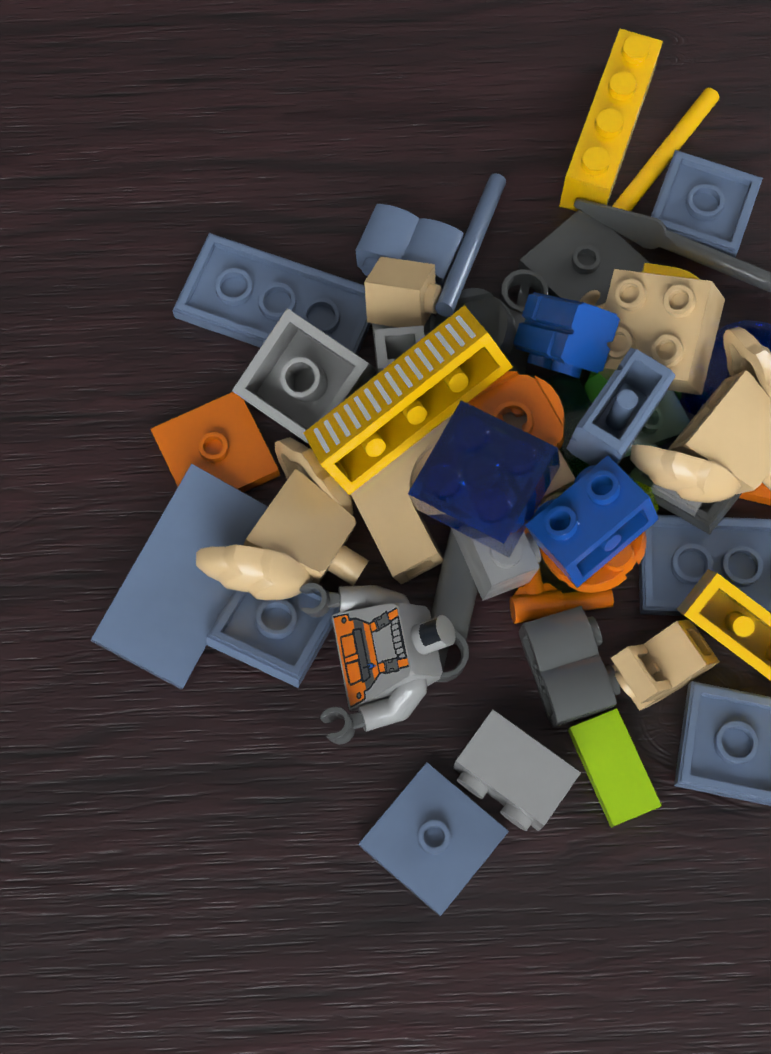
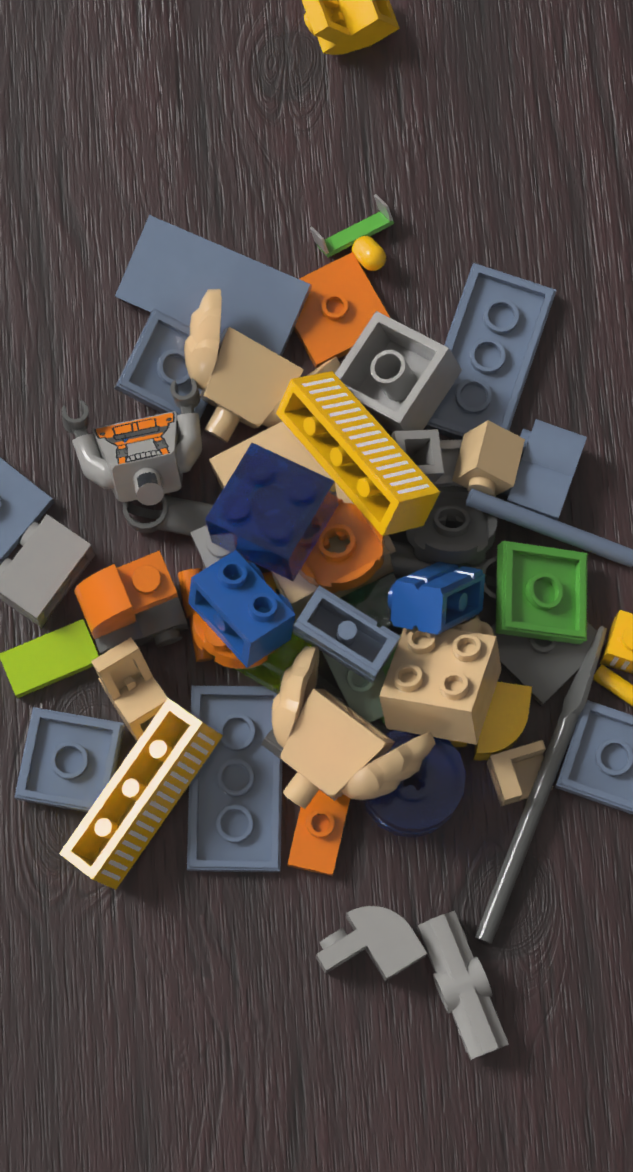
camera: 85 degrees right, 5 degrees up
(130, 423) = (364, 247): none -> piece
(543, 252) = (541, 592): none -> bright green plate
(570, 663) = (117, 594): none -> orange brick
(739, 295) = (516, 771): none -> tan panel

